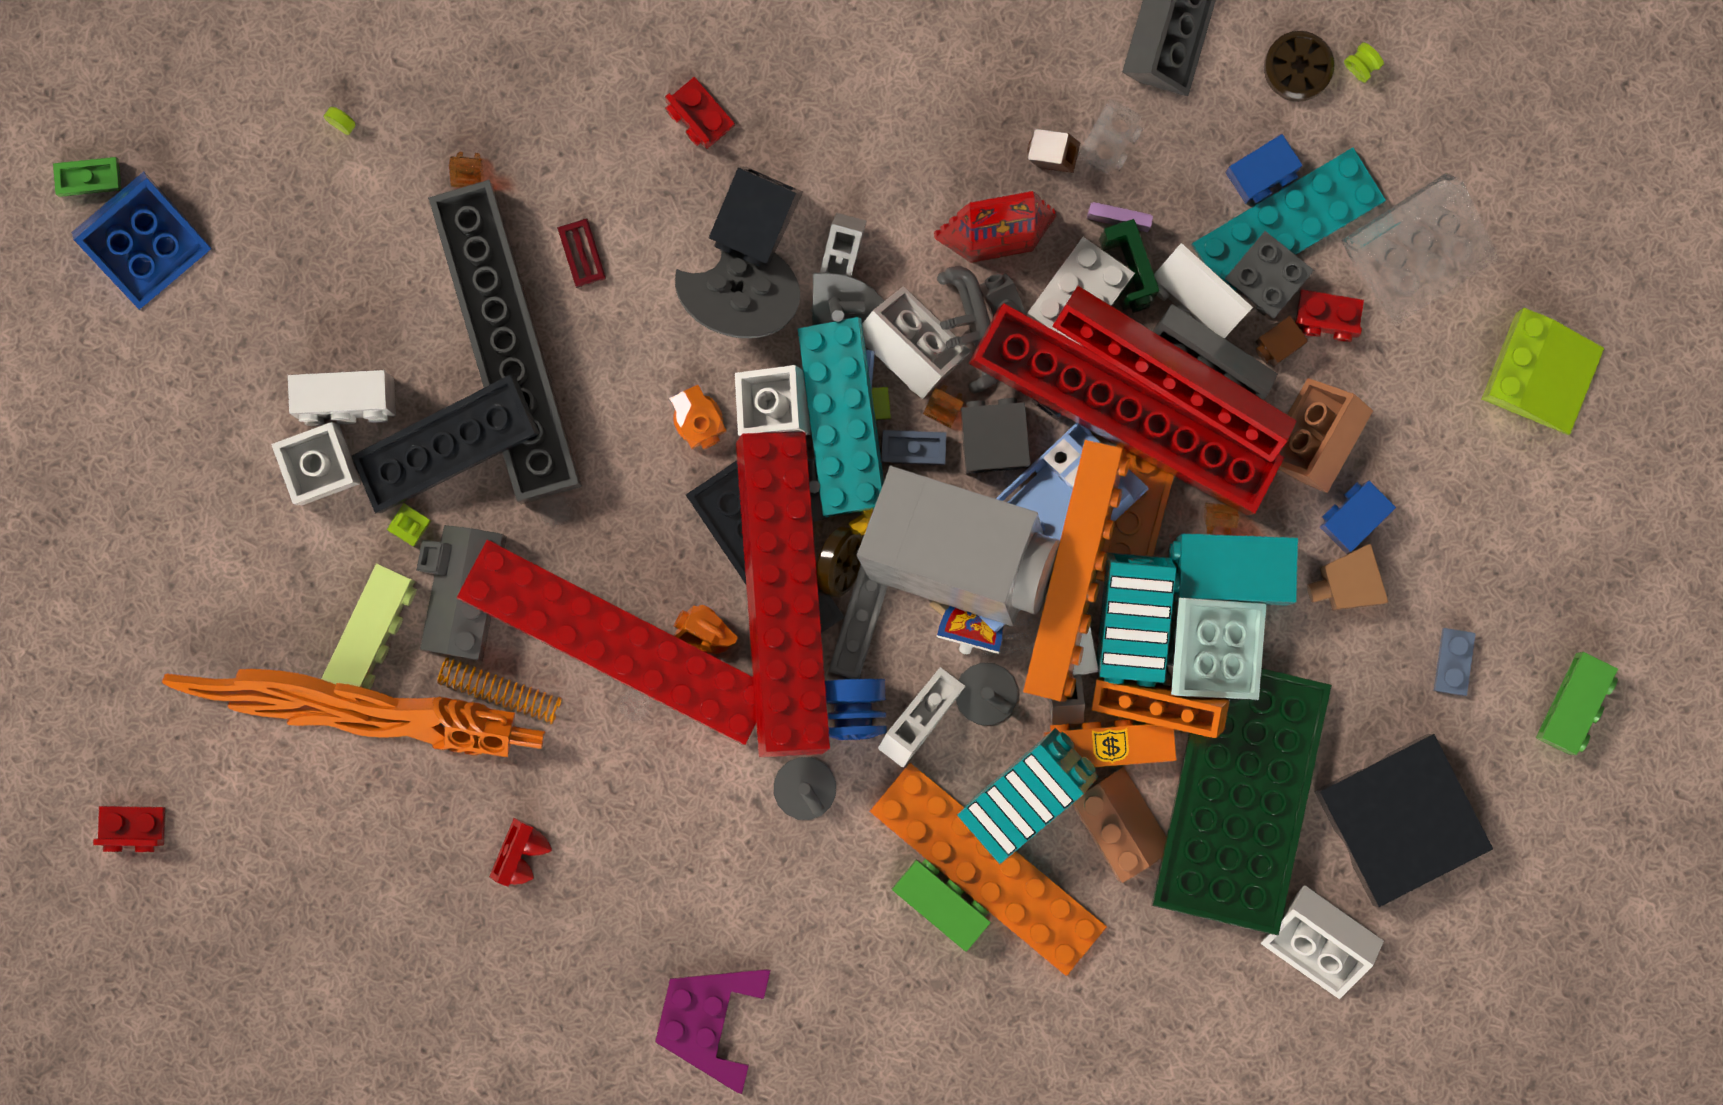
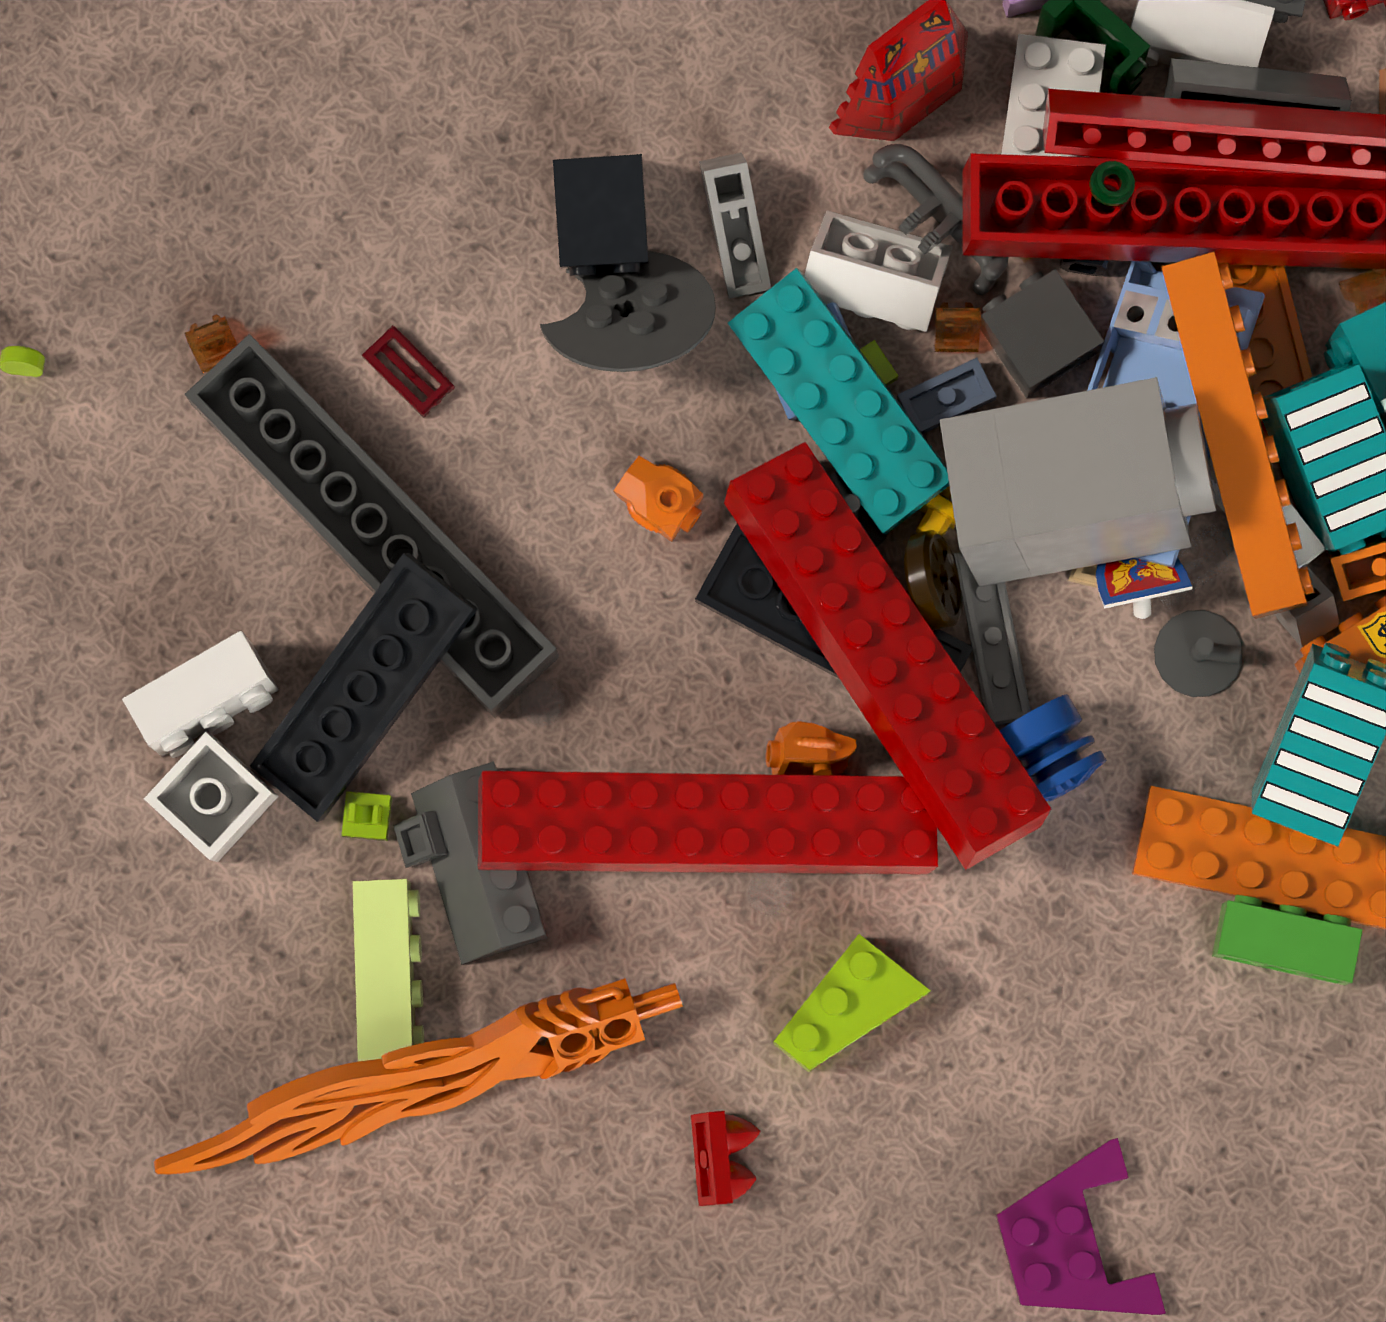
camera: 20 degrees left, 5 degrees down
(552, 717) = (637, 969): light orange piece -> none
(645, 801) = (848, 1004): none -> lime wedge
(699, 112) = (464, 129): red bracket -> none
(772, 401) = (743, 425): white brick -> none
(804, 788) = (1036, 887): dark grey shield -> none
(841, 298) = (760, 259): dark grey shield -> none
(921, 717) = (1135, 722): white slope -> none
(999, 290) = (949, 154): dark grey bracket -> none
(1090, 362) = (1117, 172): none -> dark green plate
(1280, 342) = (1325, 40): reddish brown brick -> none

